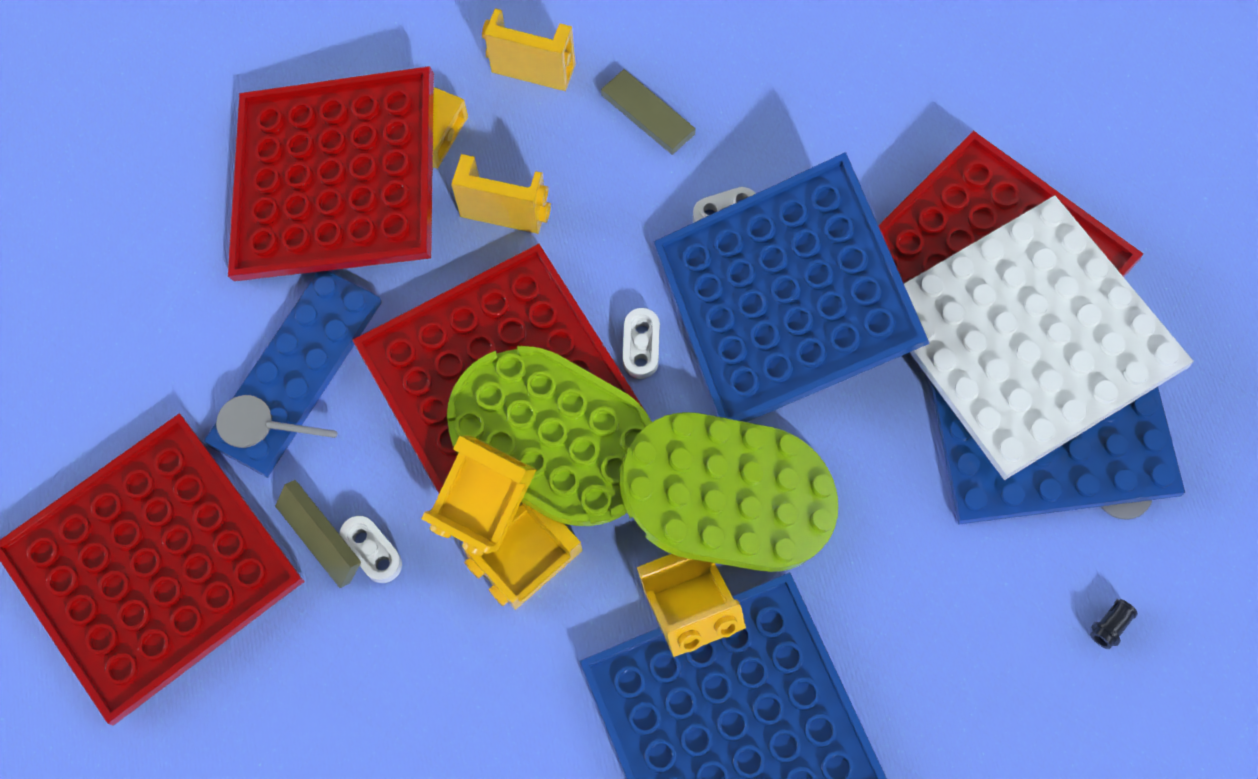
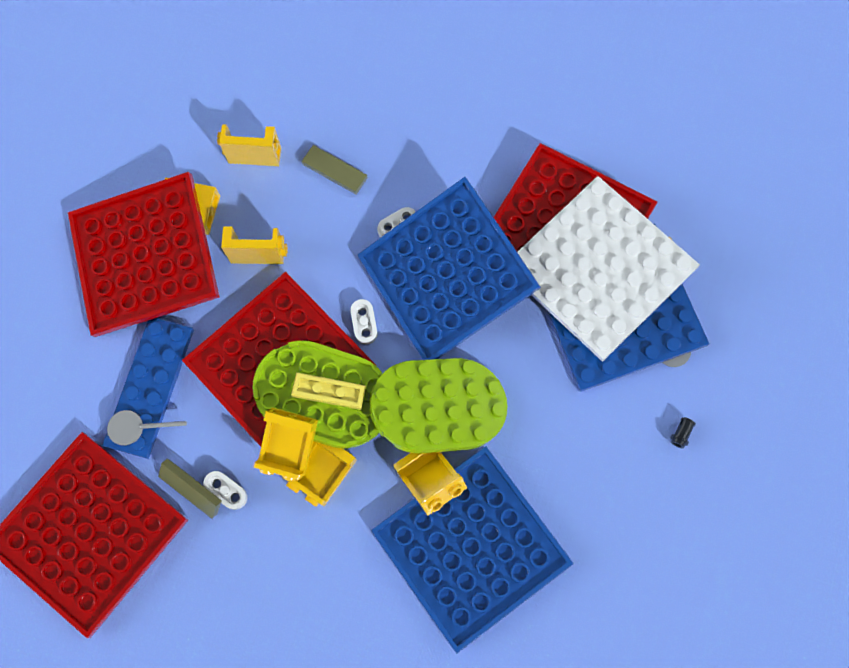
camera: 15 degrees left, 5 degrees up
(563, 431) = (328, 391): none -> light yellow tile

